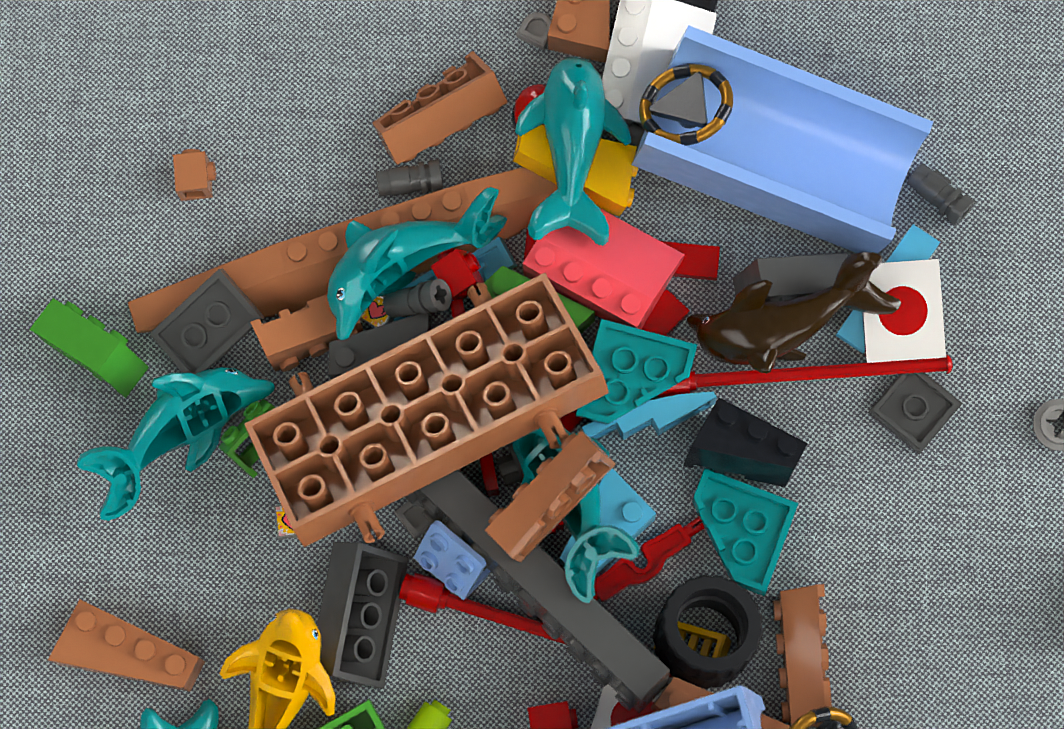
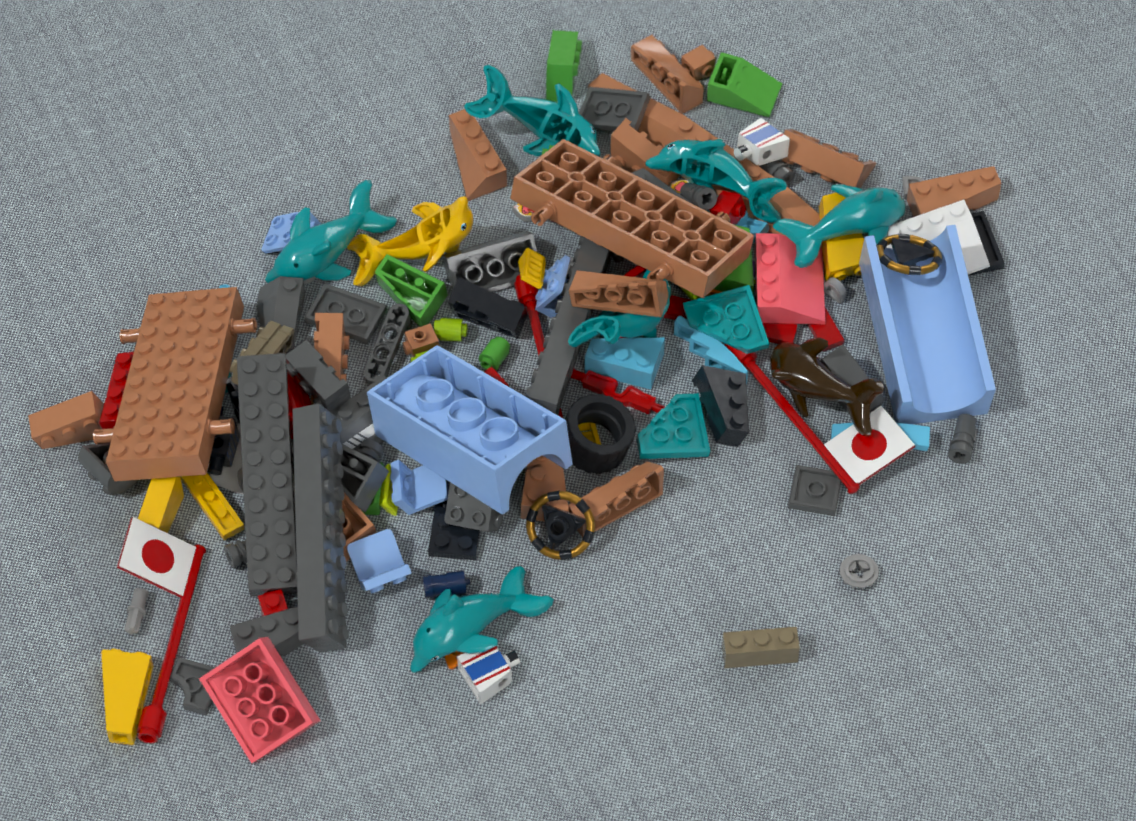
camera: 55 degrees right, 20 degrees down
(117, 648) = (396, 157): nougat wedge -> none
(173, 542) = (476, 158): none -> nougat wedge
(184, 223) = (667, 74): none -> nougat wedge
(265, 142) = (742, 86): none -> bright green slope
(384, 176) = (761, 143): none -> white torso
(407, 571) = (532, 268): none -> yellow slope
(432, 660) = (487, 309): none -> black wedge
(499, 689) = (494, 353): none -> bright green brick
(640, 214) = (835, 289): none -> light grey tile

